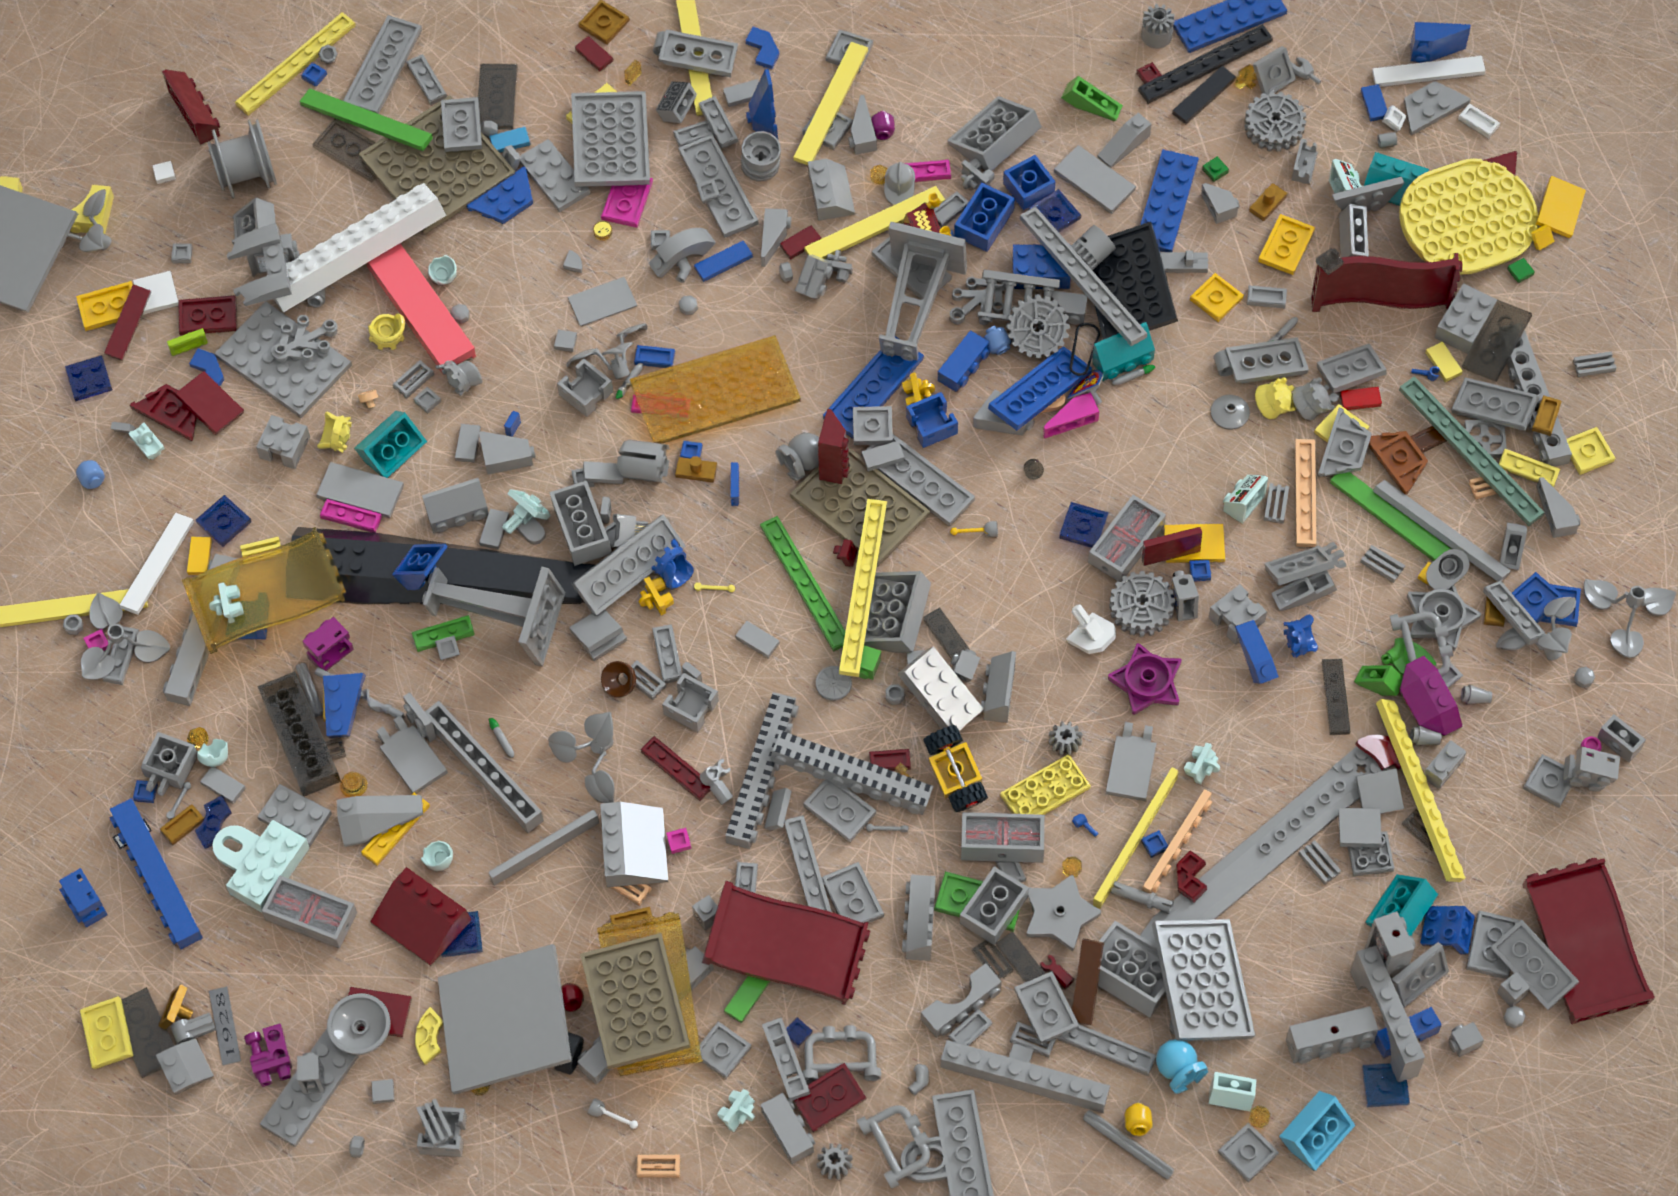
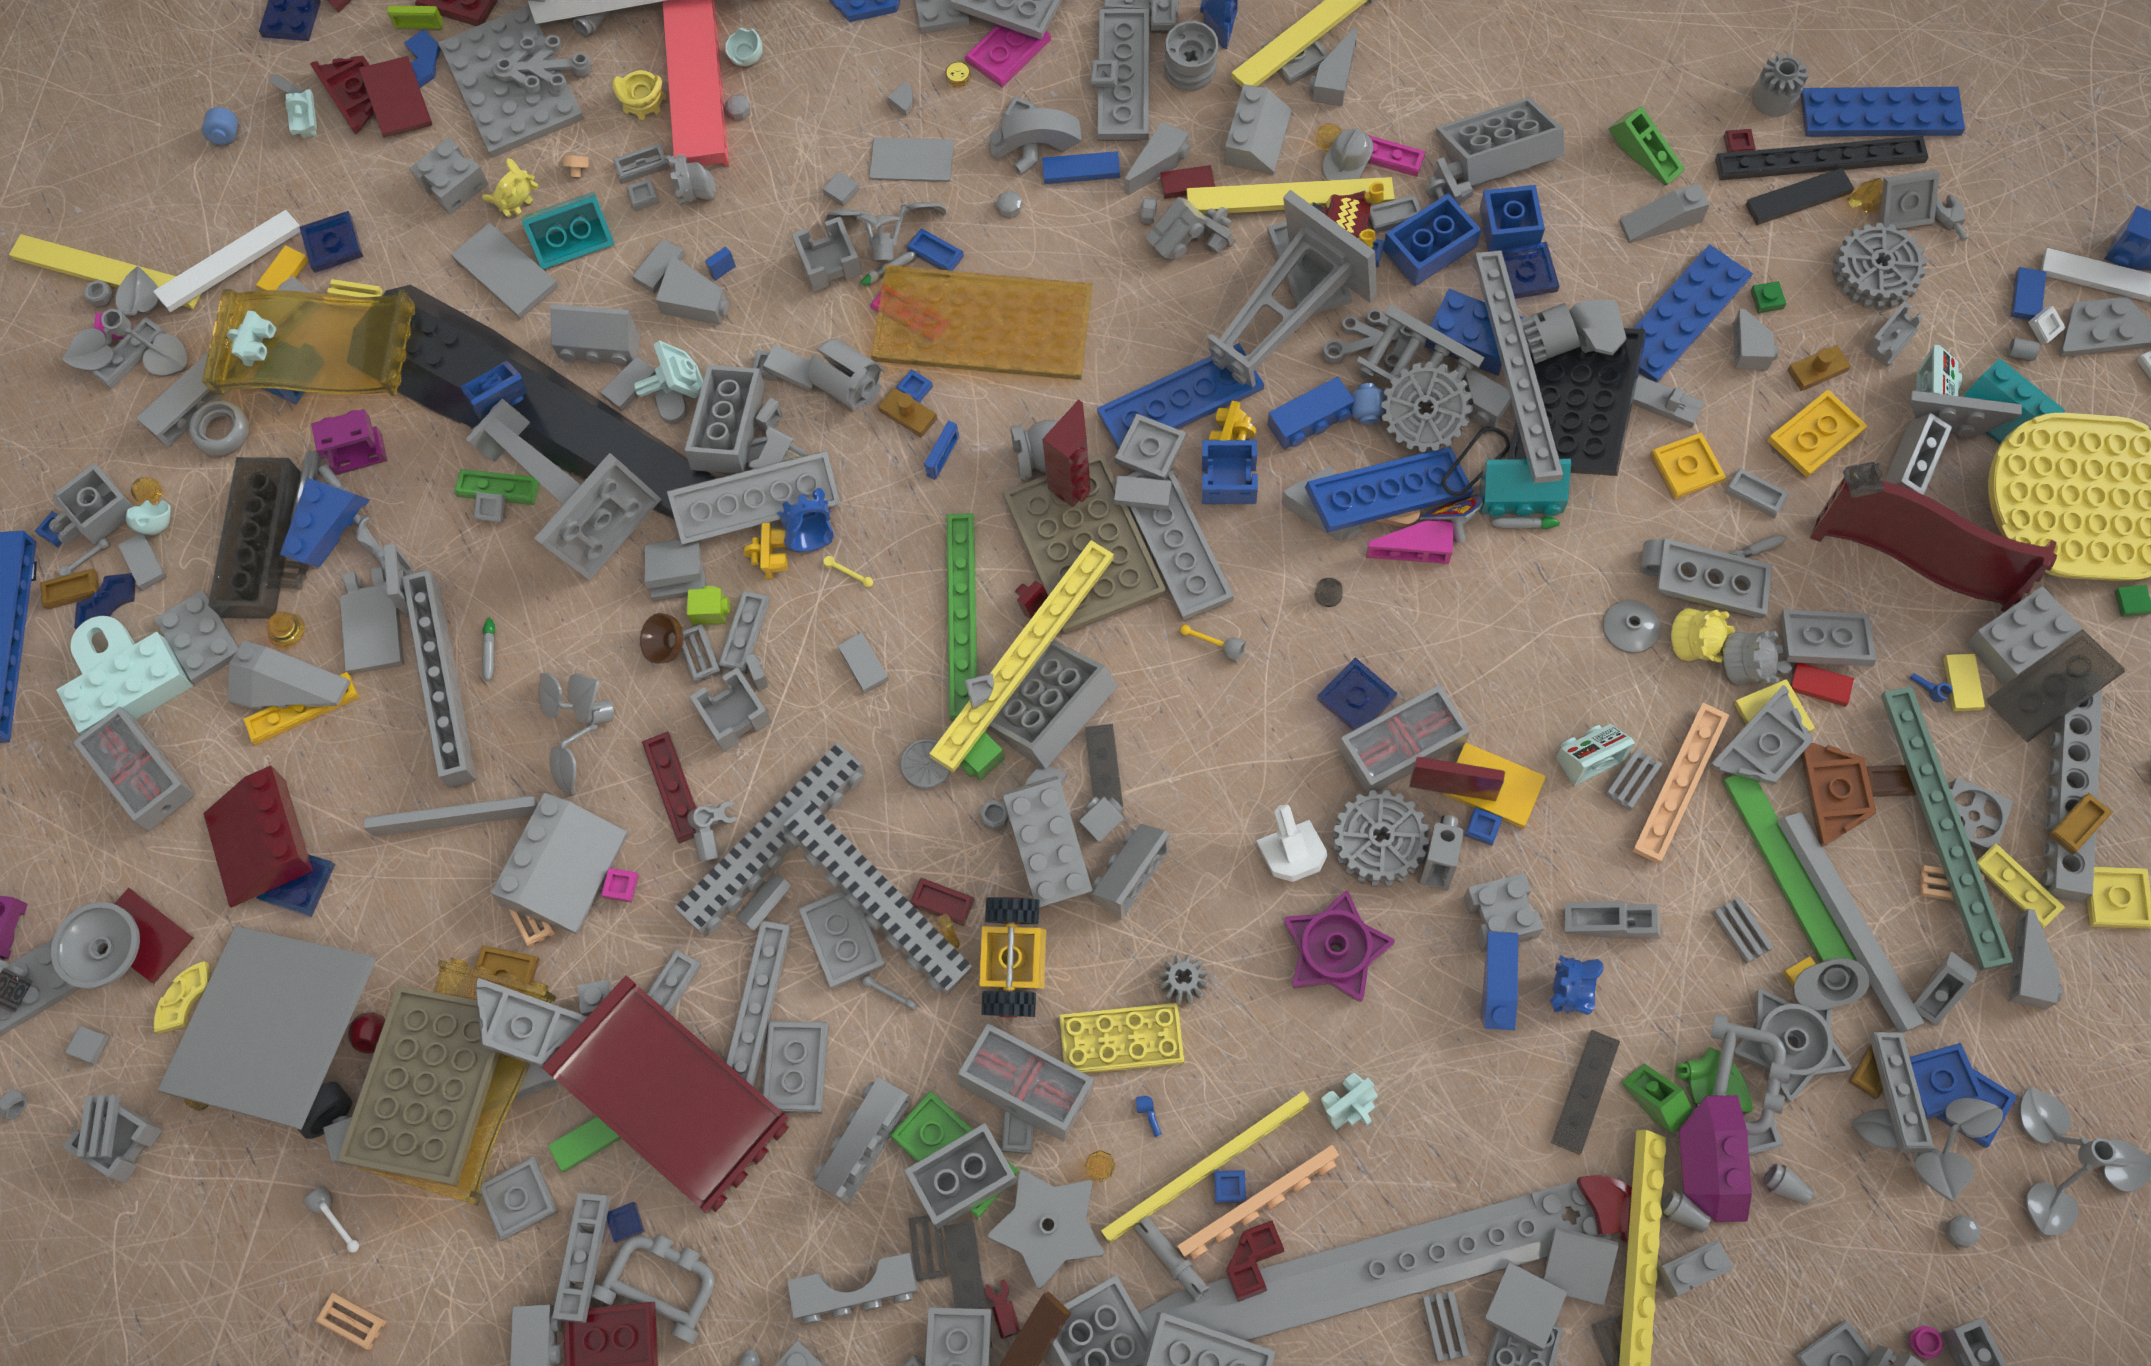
camera: 30 degrees right, 5 degrees up
(224, 690) = (227, 444): none -> light grey wheel
(350, 515) = (477, 297): dark pink tile -> none
(437, 856) = (322, 768): light aqua hair -> none
(635, 647) = (707, 606): none -> lime brick
(675, 937) = (522, 1024): none -> light grey wing
(739, 1110) = (488, 1298): light aqua hips -> none
(849, 618) = (979, 689): none -> light grey tile
(883, 125) = (1364, 77): magenta head -> none
(971, 1028) = (845, 1334): light grey tile -> none
(1094, 179) = (1601, 248): light grey tile -> none
(1122, 230) = (1598, 325): none -> light grey panel
(1131, 764) = (1254, 1057): light grey tile -> none
(1304, 563) = (1631, 883): light grey tile -> none
(1495, 404) = (2011, 774): light grey tile -> none

